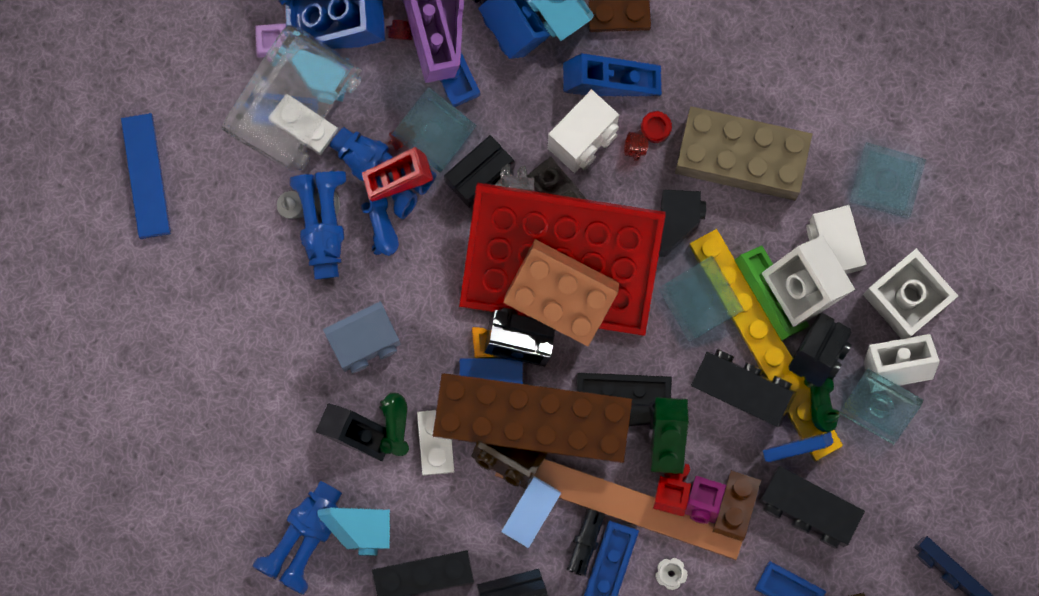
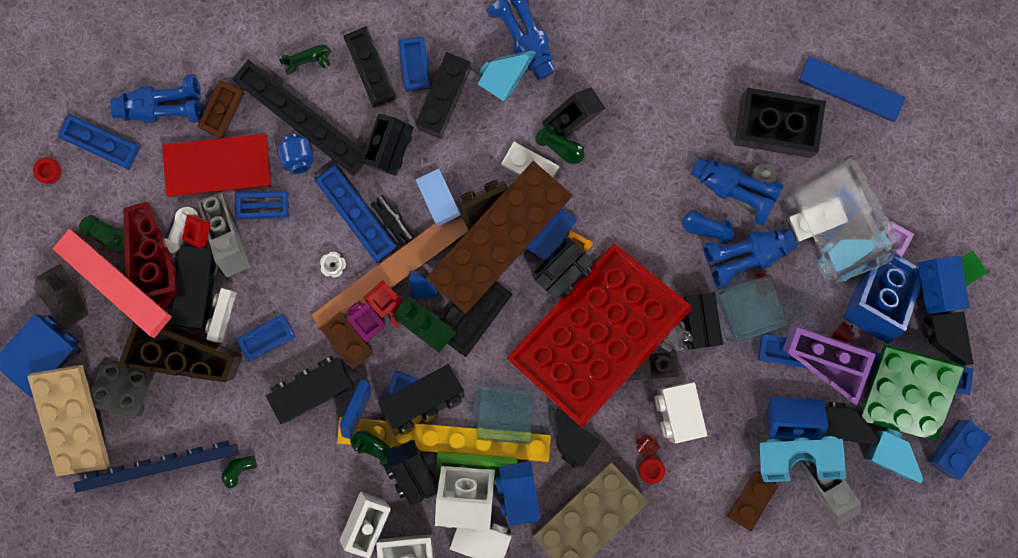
camera: 125 degrees right, 5 degrees up
(230, 221) = (780, 123): none -> black brick
(362, 338) = (635, 160): sand blue slope -> none
(412, 179) = (729, 273): red slope -> none
(561, 293) = (573, 316): nougat brick -> none
(610, 76) = (709, 462): blue slope -> none
(632, 468) = (420, 286): none -> blue tile
(740, 422) = (400, 381): none -> blue tile
(767, 233) = (519, 493): none -> blue brick
(881, 406) = (343, 487): clear light blue tile -> none
(938, 530) = (235, 467): none -> dark green arm

